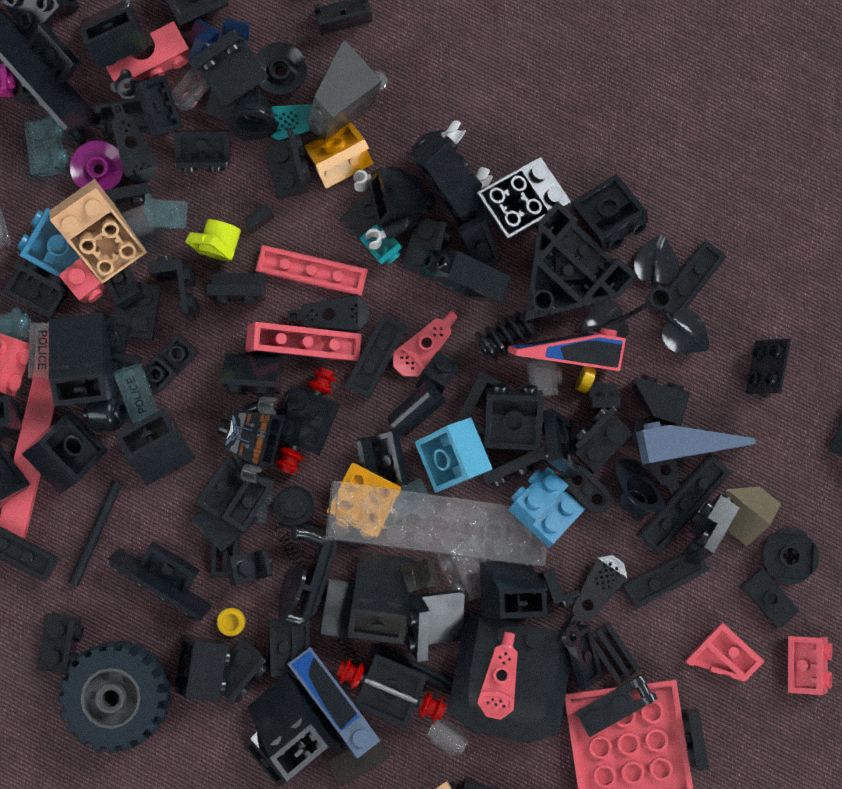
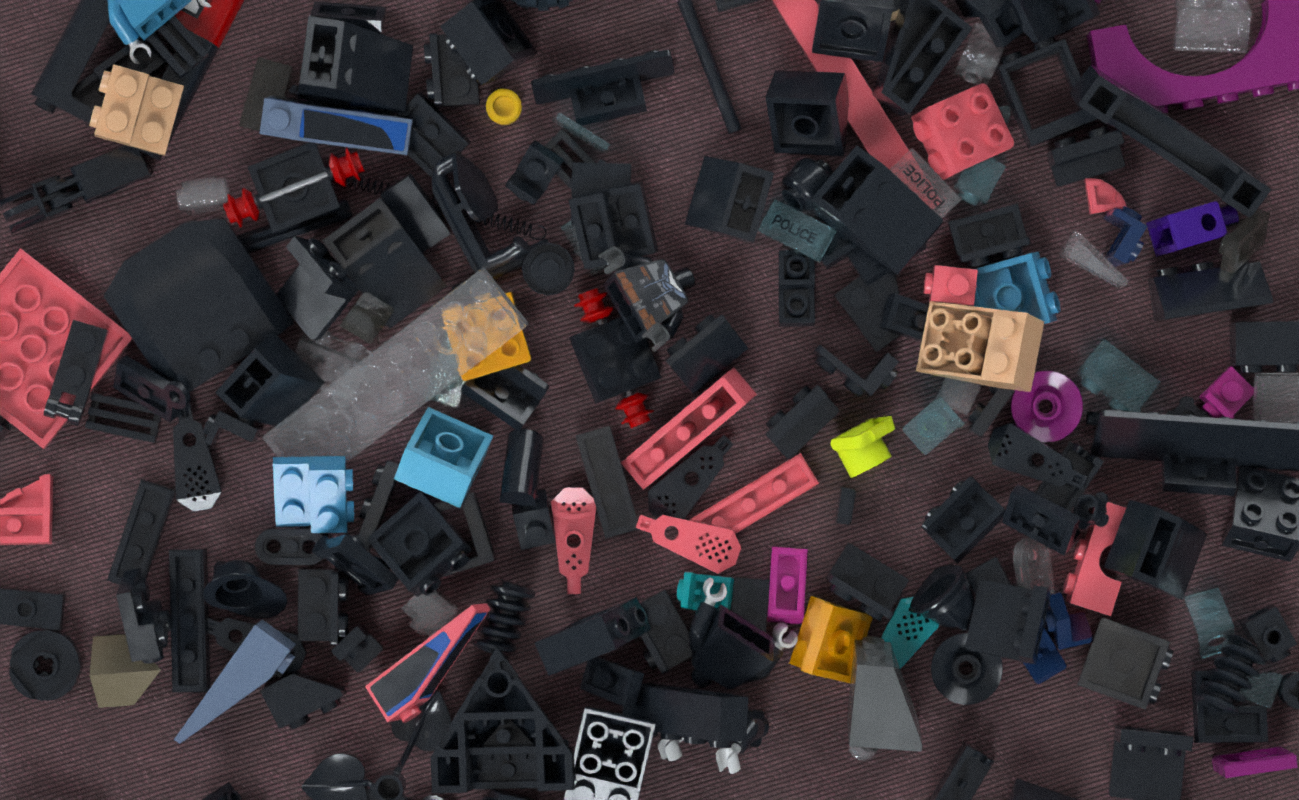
camera: 135 degrees right, 5 degrees up
(200, 564) = (580, 132): none -> clear light blue piece
(332, 206) = (787, 585): none -> dark pink slope
(361, 282) = (688, 539): none -> coral piece
(498, 689) = (201, 281): coral piece -> none
(585, 379) = (390, 648): yellow tile -> none

